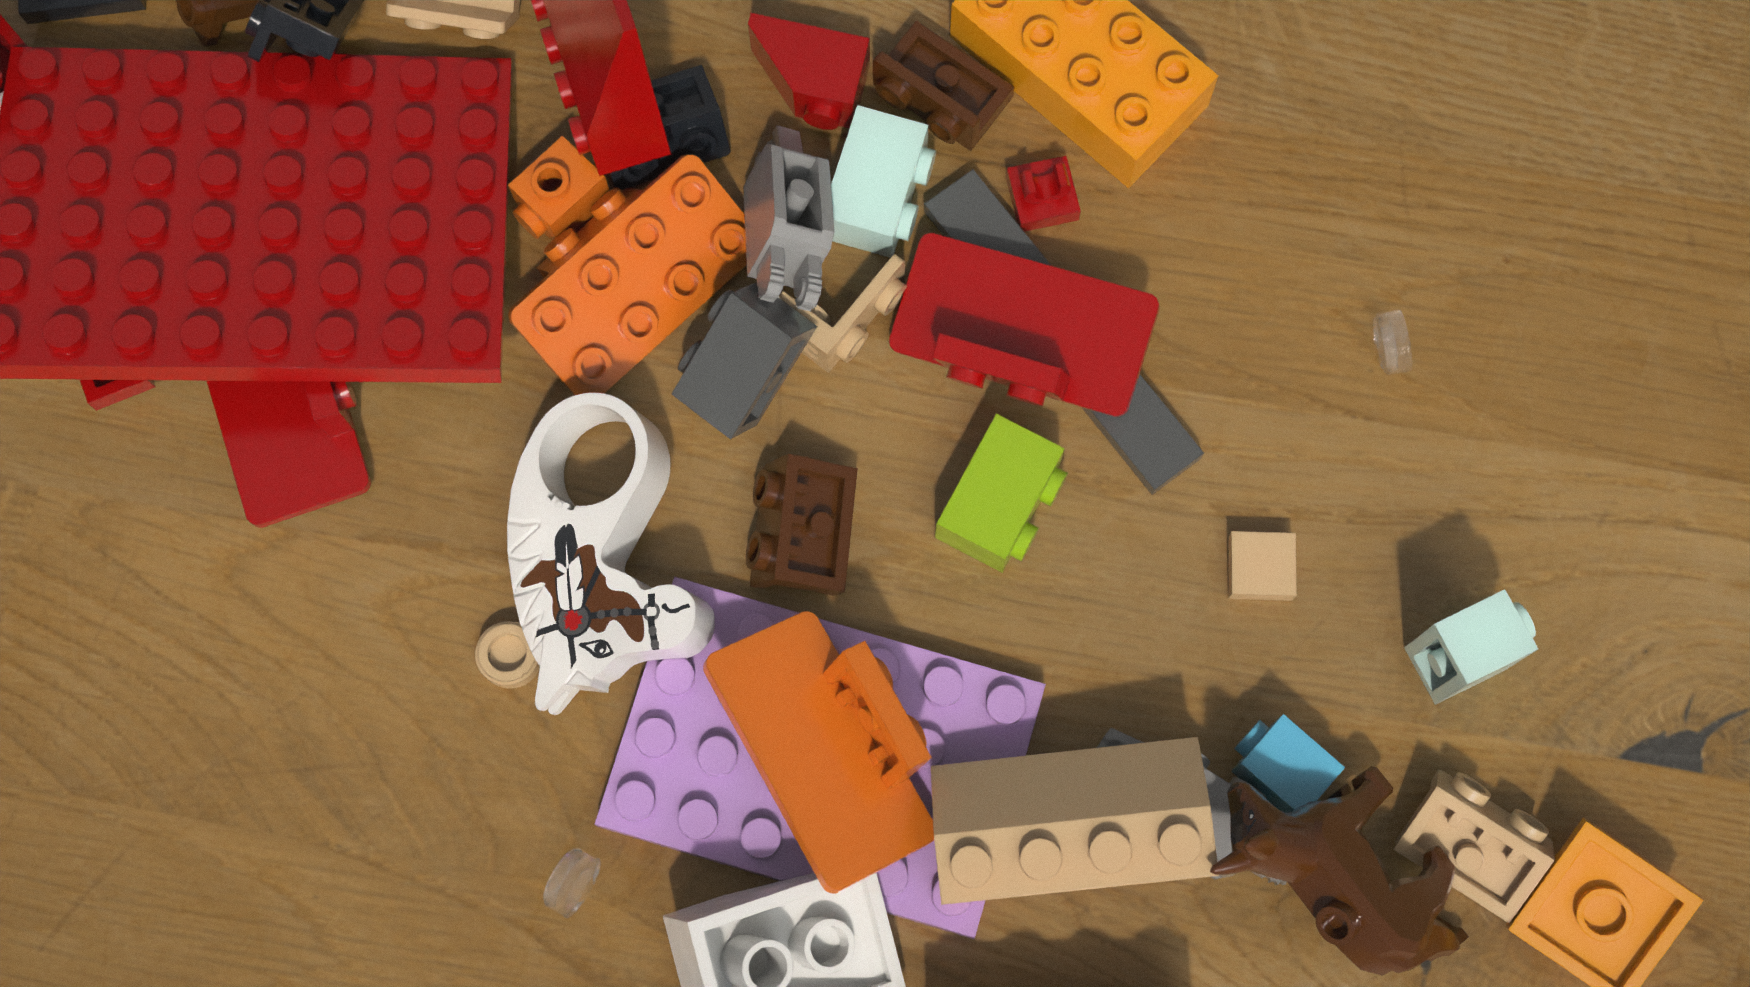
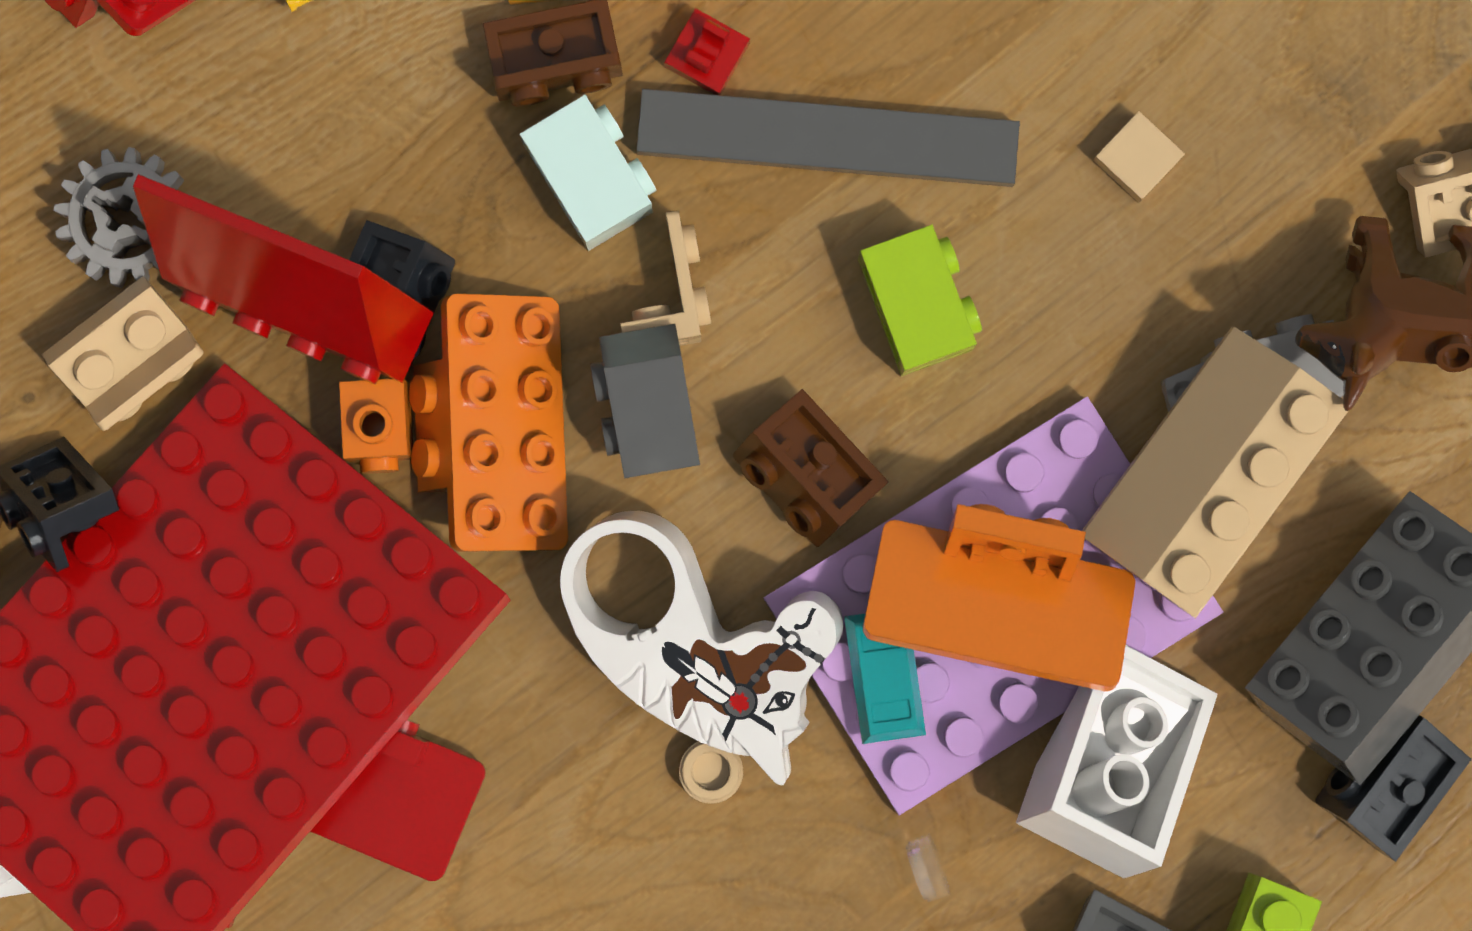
camera: 55 degrees left, 10 degrees up
(680, 724) = (883, 686): none -> teal tile
(788, 219) = (566, 269): light grey hinge -> none
(813, 68) = (450, 139): red slope -> none
(1024, 326) = (806, 168): red bracket -> none
(1285, 764) = (1301, 279): medium azure brick -> none
(1472, 646) = (1341, 67): light aqua brick -> none

